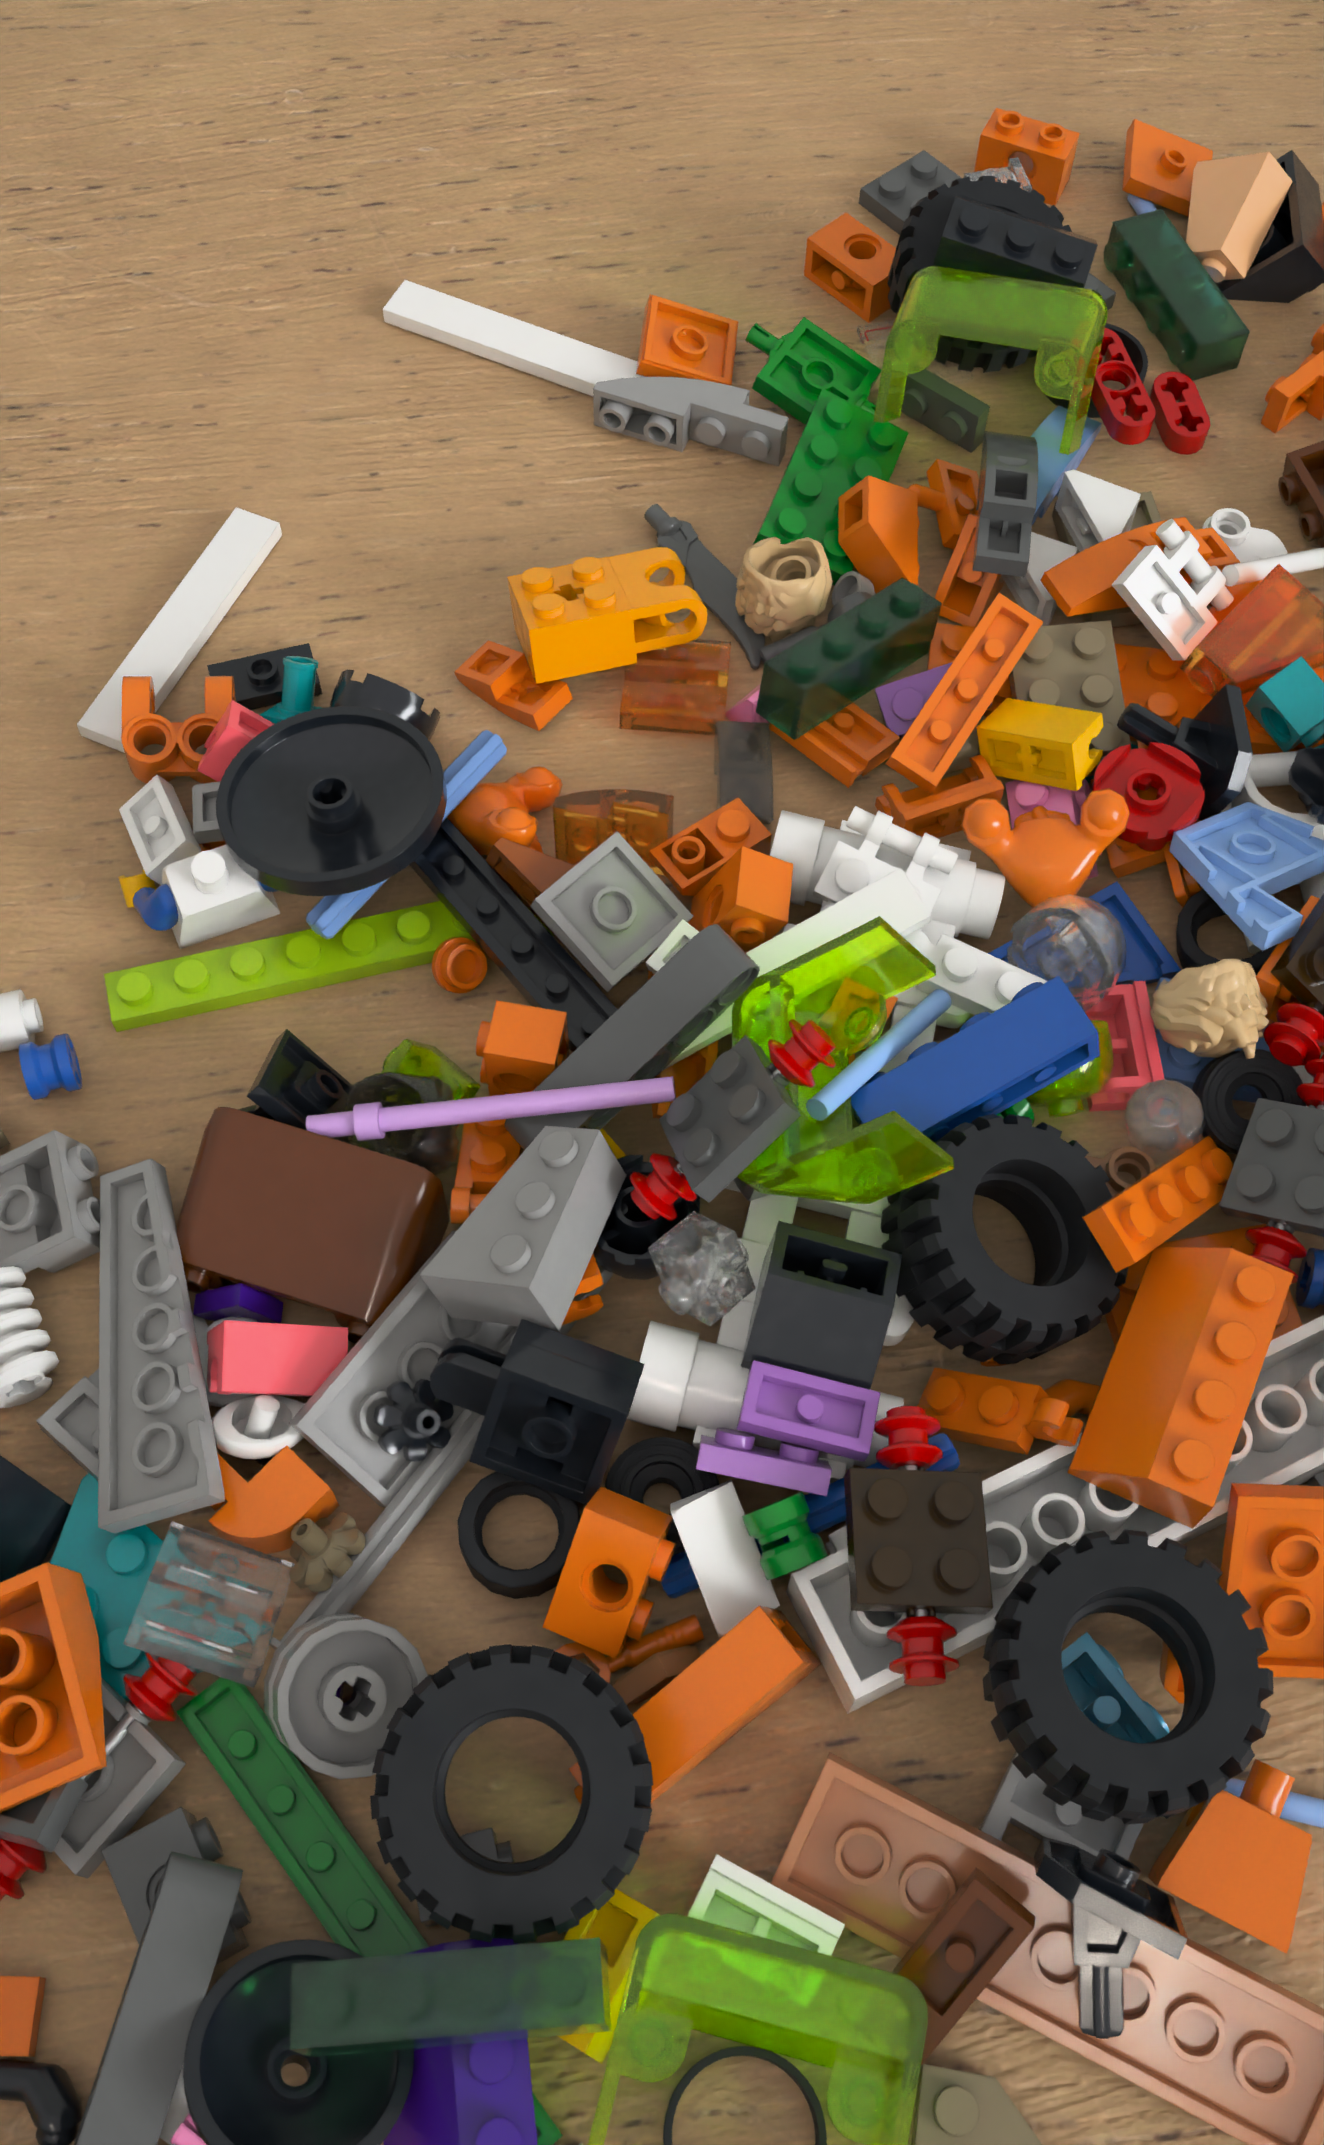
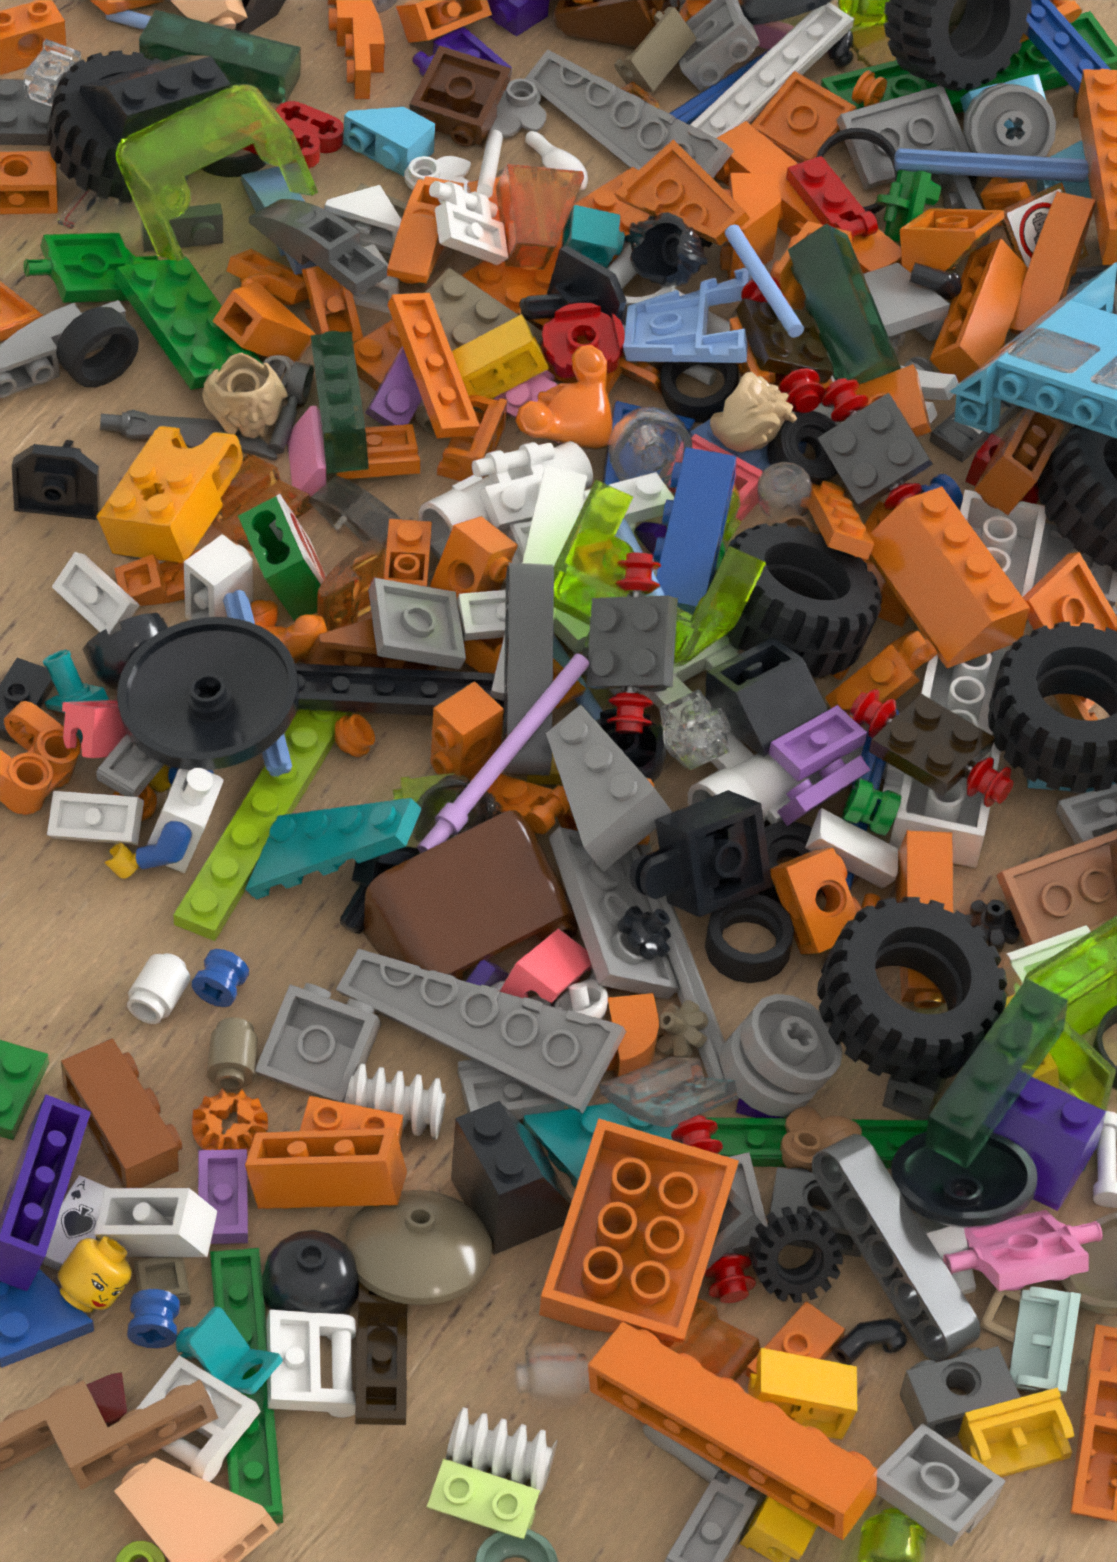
camera: 55 degrees left, 10 degrees down
(67, 1922) = (807, 1276): none -> black tyre
(263, 1035) = (328, 839): none -> teal wing
(284, 1832) = (811, 1133): none -> medium nougat plate
(435, 646) = (94, 594): none -> white plate
(526, 718) = (212, 574): none -> white brick
(534, 519) = (56, 482): none -> black piece
(604, 739) = (284, 555): none -> green piece
(728, 417) = (84, 333): none -> black tyre
(763, 1792) = (994, 921): none -> black plant
(1238, 472) = (389, 136): none -> medium azure slope

